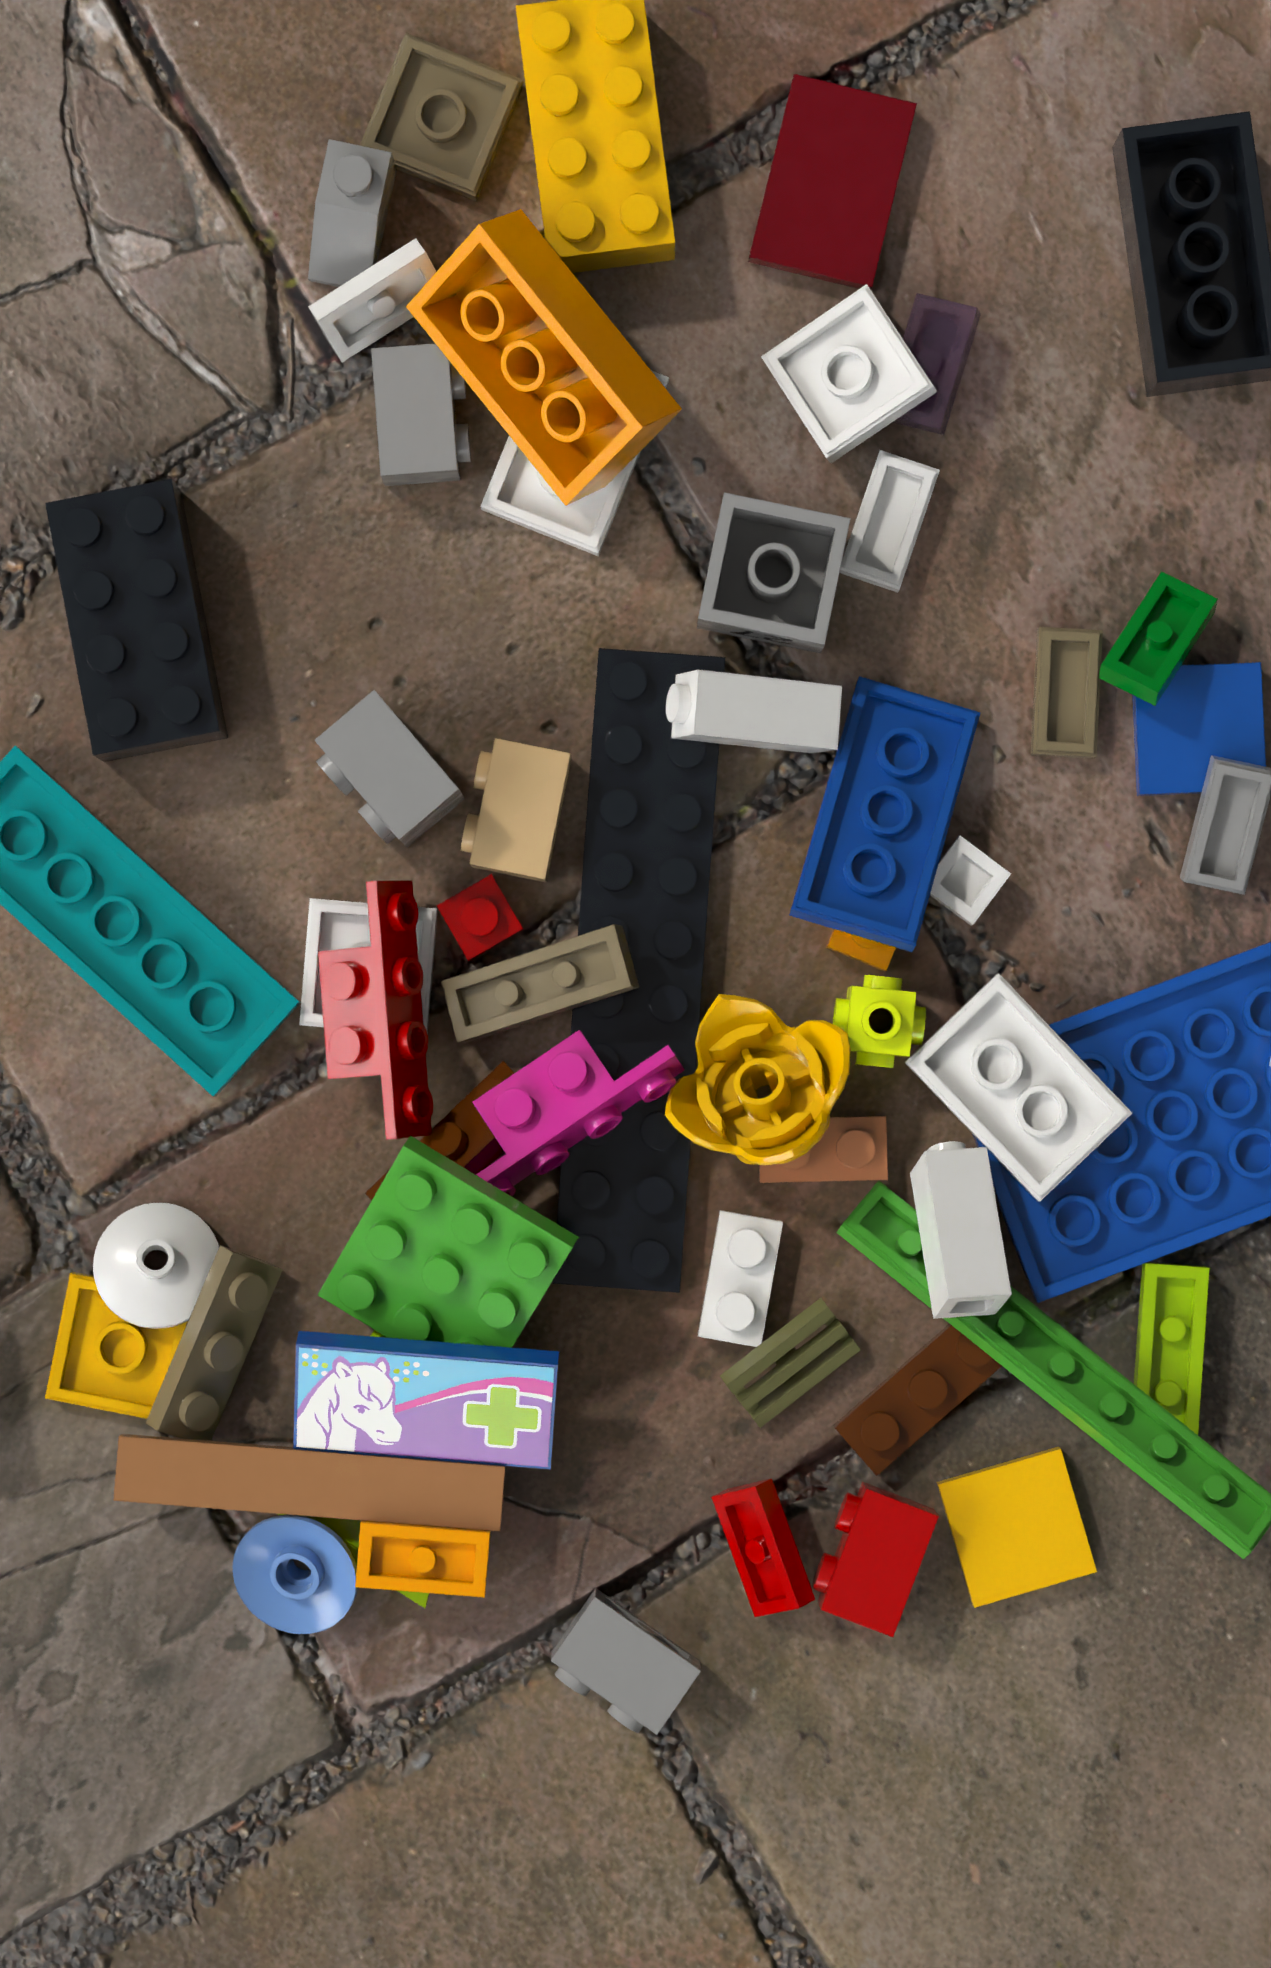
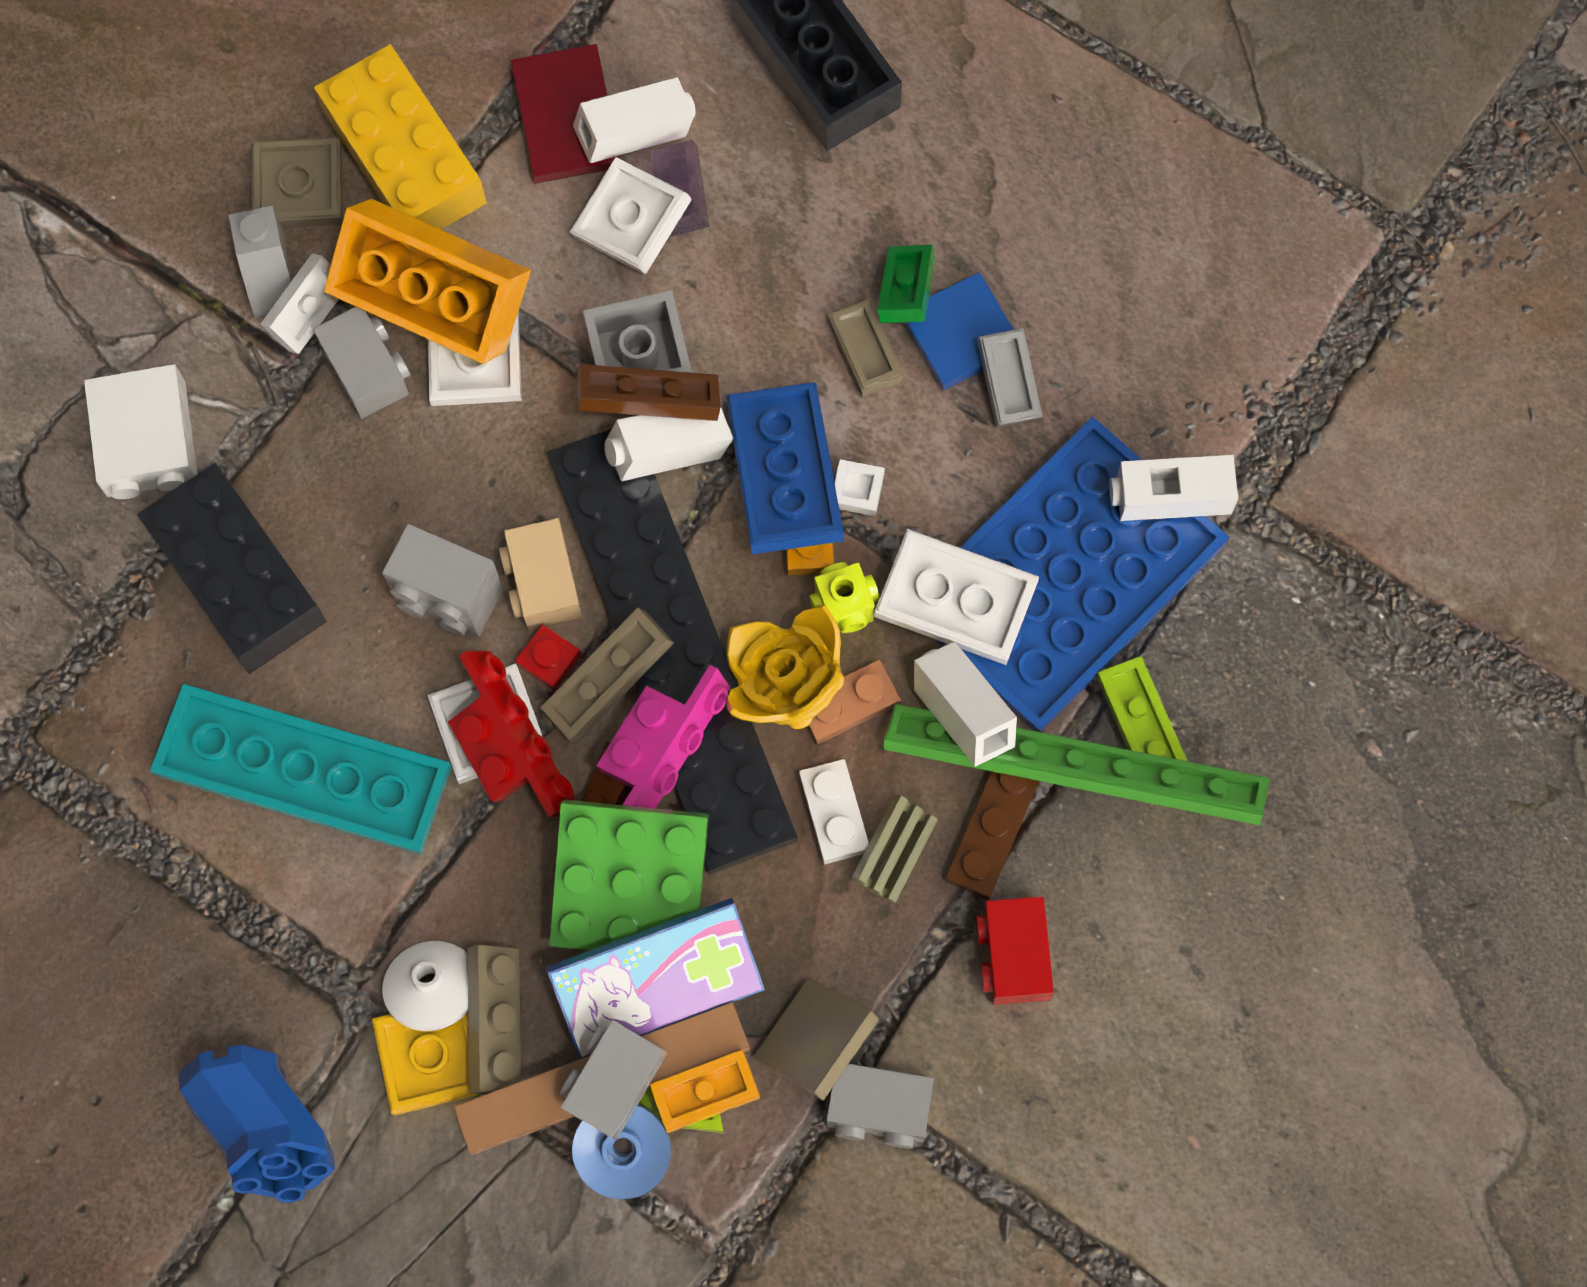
camera: 25 degrees left, 15 degrees down
(98, 381) = (140, 431): none -> white brick
(318, 1503) = (612, 1078): none -> light grey brick
(584, 1554) = (816, 1038): none -> dark tan tile
(754, 651) = (648, 392): none -> reddish brown plate
(763, 1548) = (936, 980): red plate -> none
(889, 521) = (699, 295): white tile -> none
(914, 244) = (634, 119): none -> white brick
(1016, 1527) = (1101, 889): yellow tile -> none

